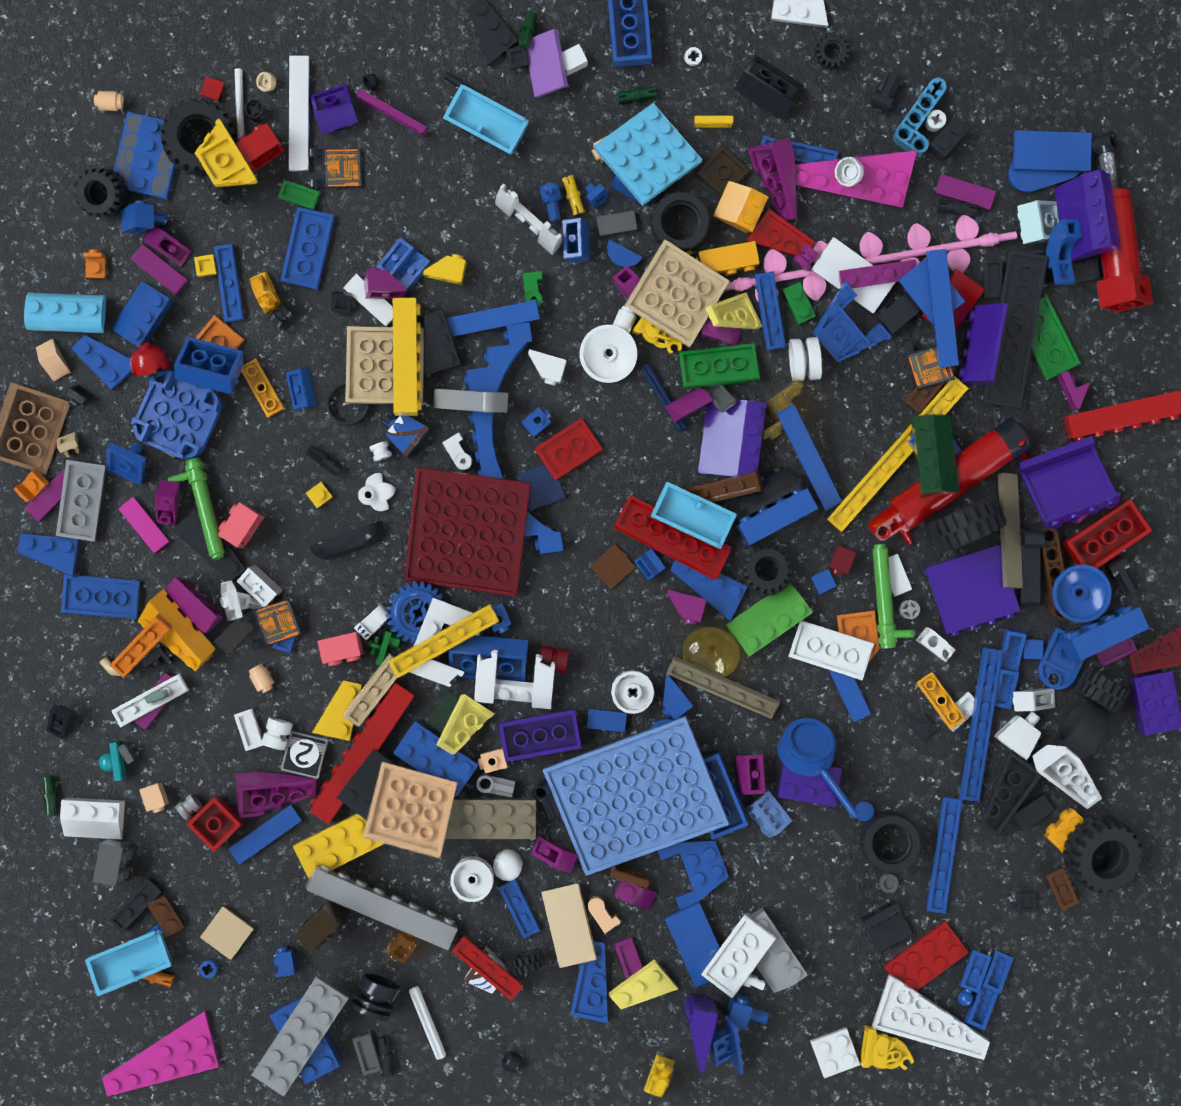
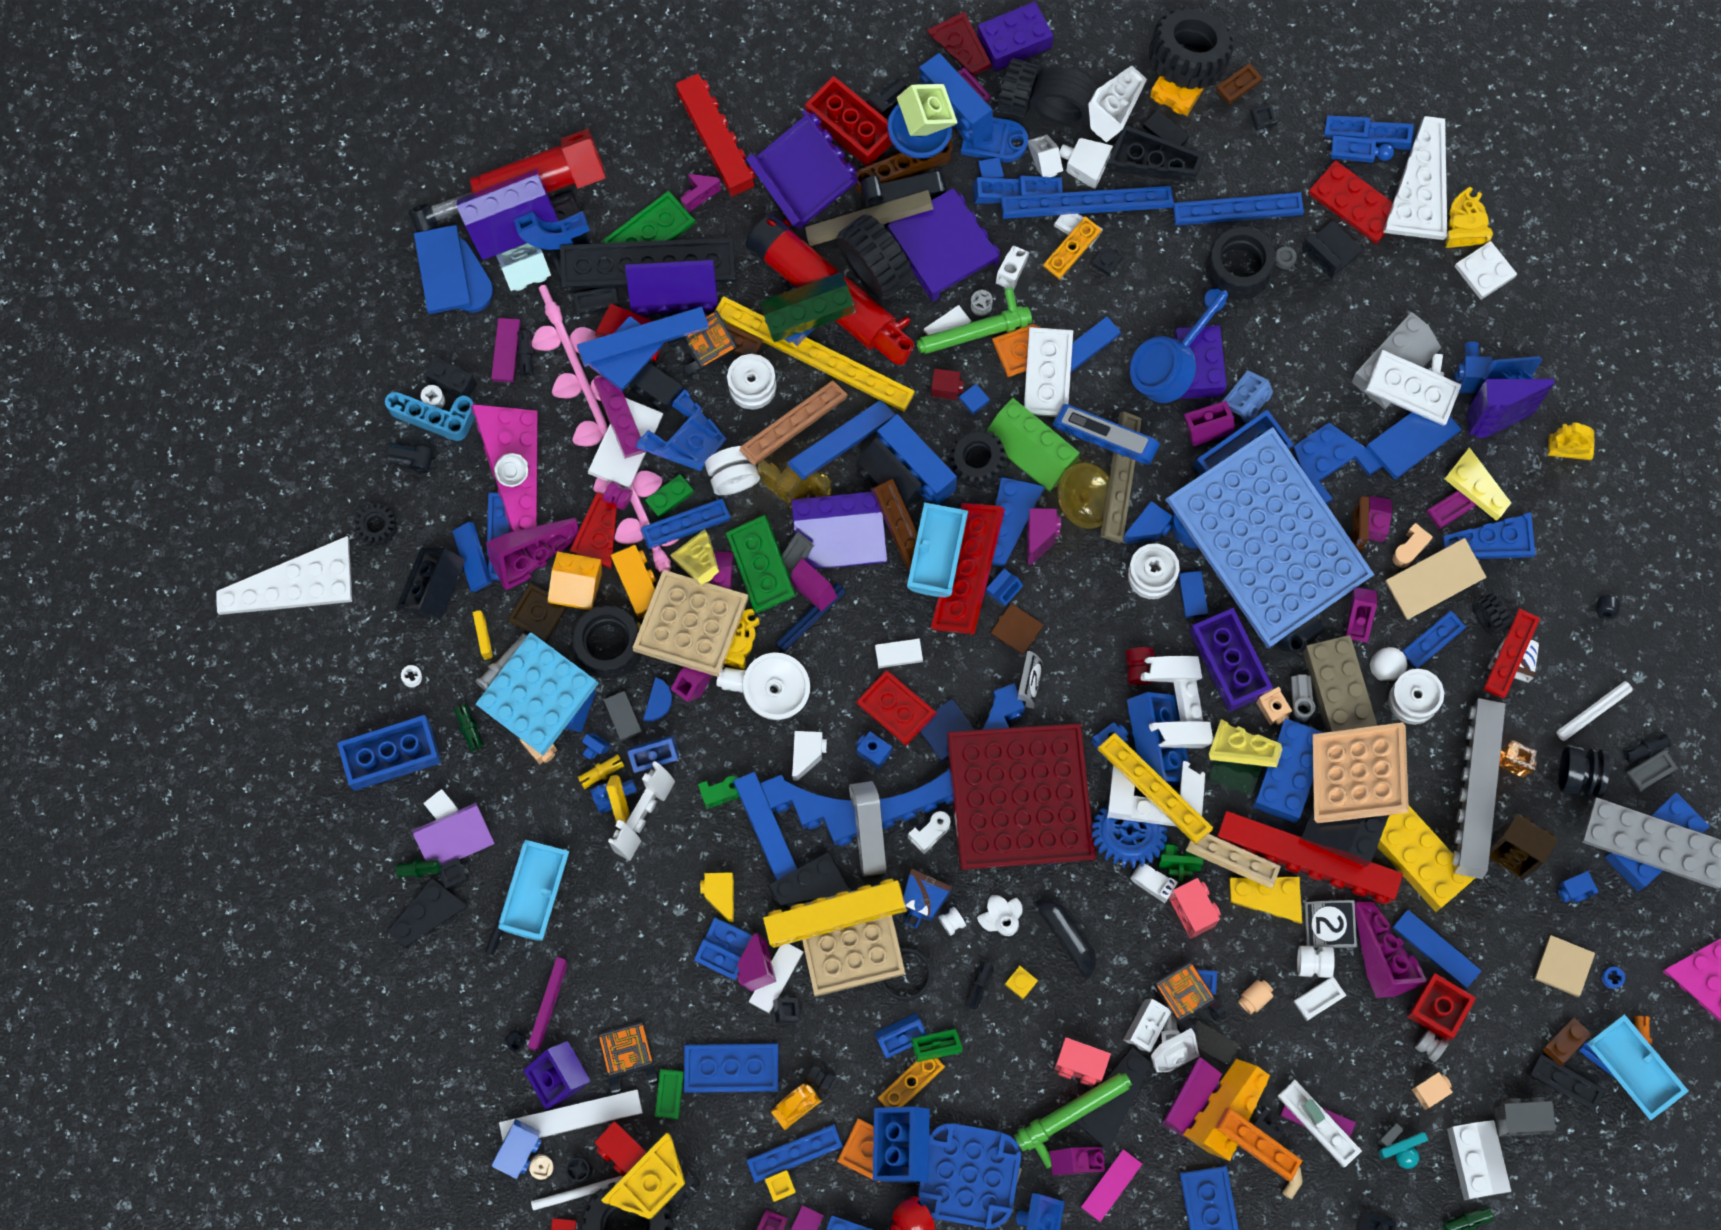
camera: 100 degrees left, 15 degrees down
(282, 63) = (516, 1149): none -> brick
(284, 414) = (936, 1049): none -> green tile
(542, 202) = (617, 799): none -> yellow tile
(562, 564) = (1030, 679): none -> slope
(615, 463) = (899, 653): none -> white tile
(680, 126) = (494, 669): none -> light grey pin
(760, 683) = (1106, 434): none -> beam
(784, 127) = (470, 549): none -> blue tile
(835, 420) = (793, 423): none -> nougat tile
(894, 394) = (751, 381): none -> white wheel
(1094, 602) = (926, 109): none -> yellowish green slope

